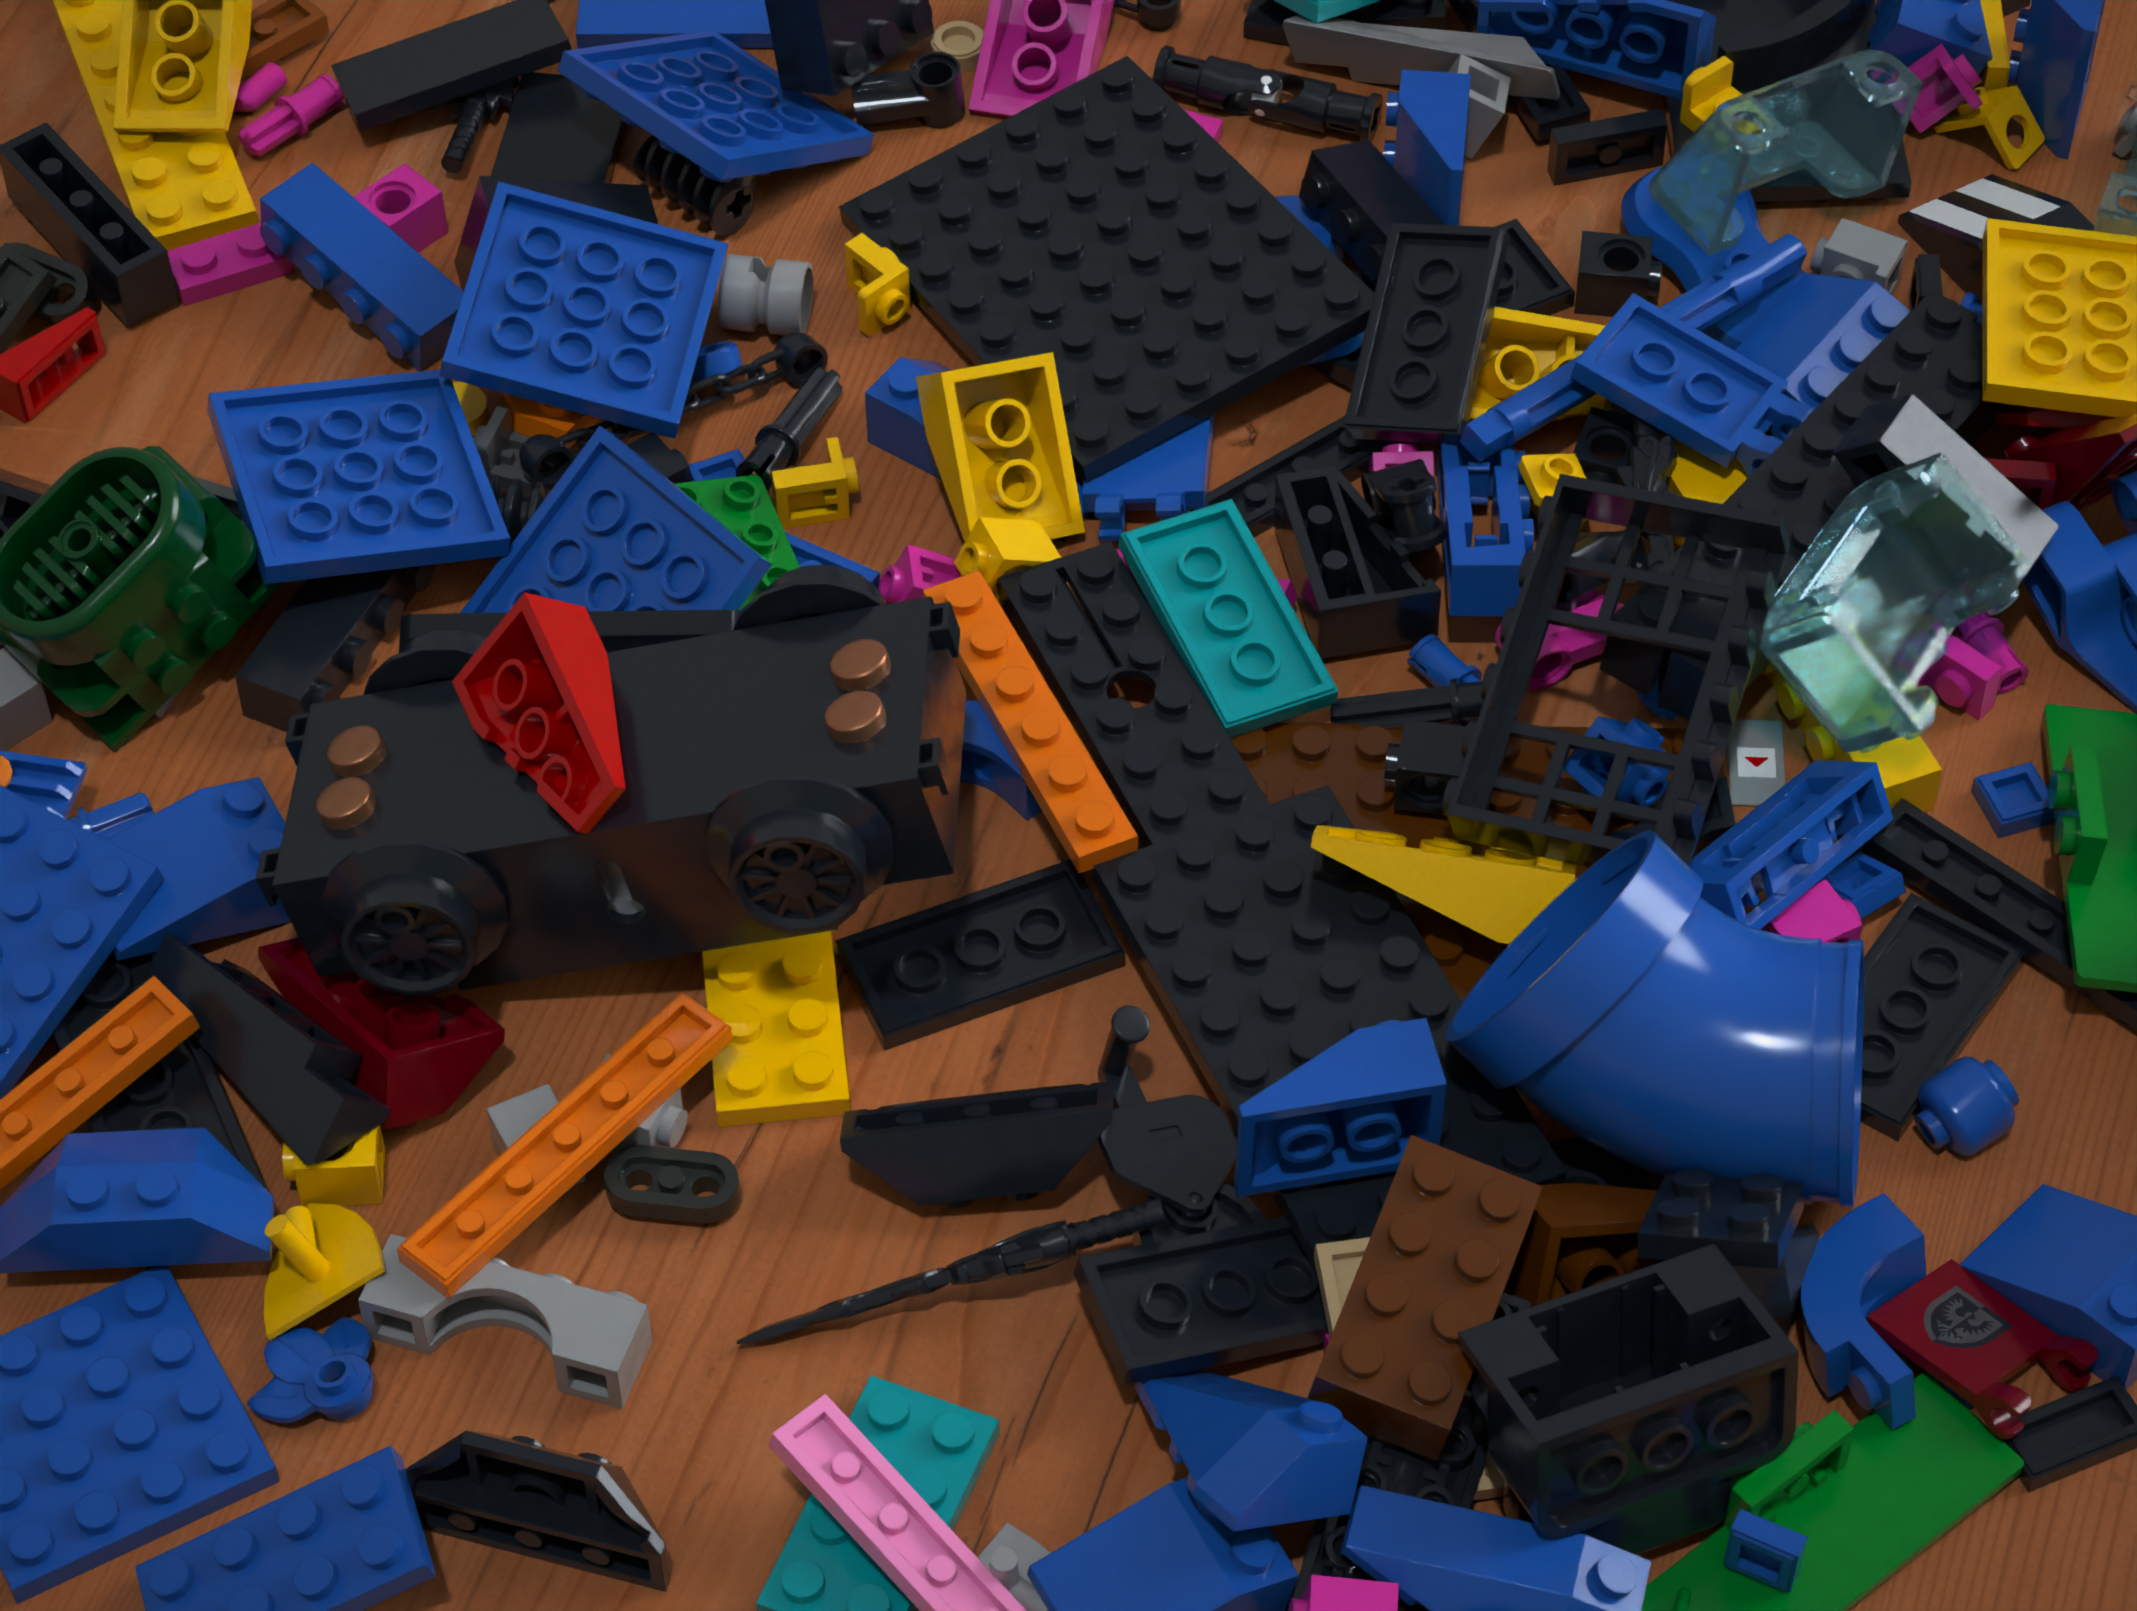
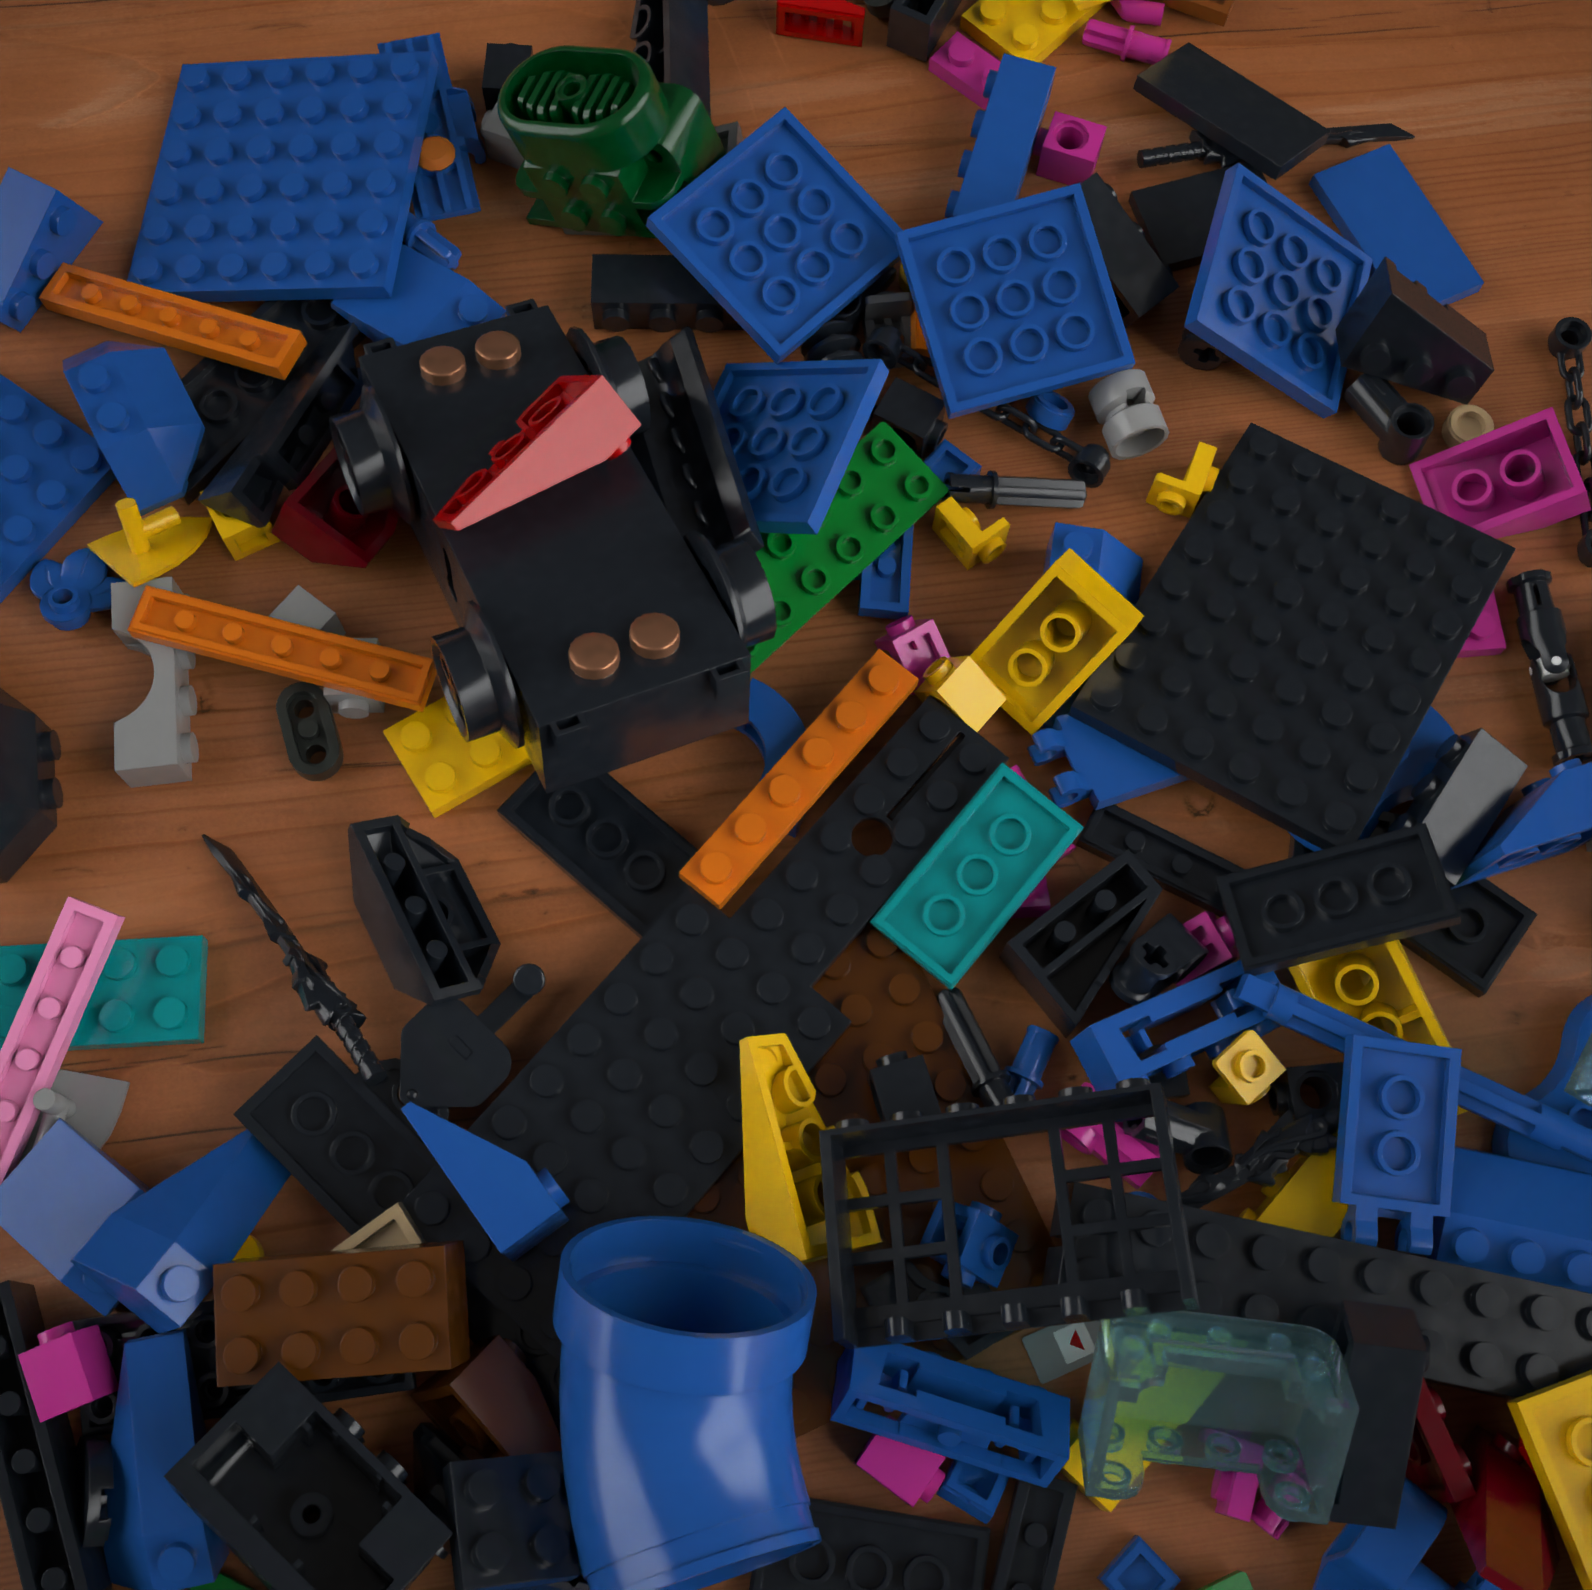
camera: 60 degrees right, 20 degrees up
(1613, 270) = (1532, 1002): black brick -> none

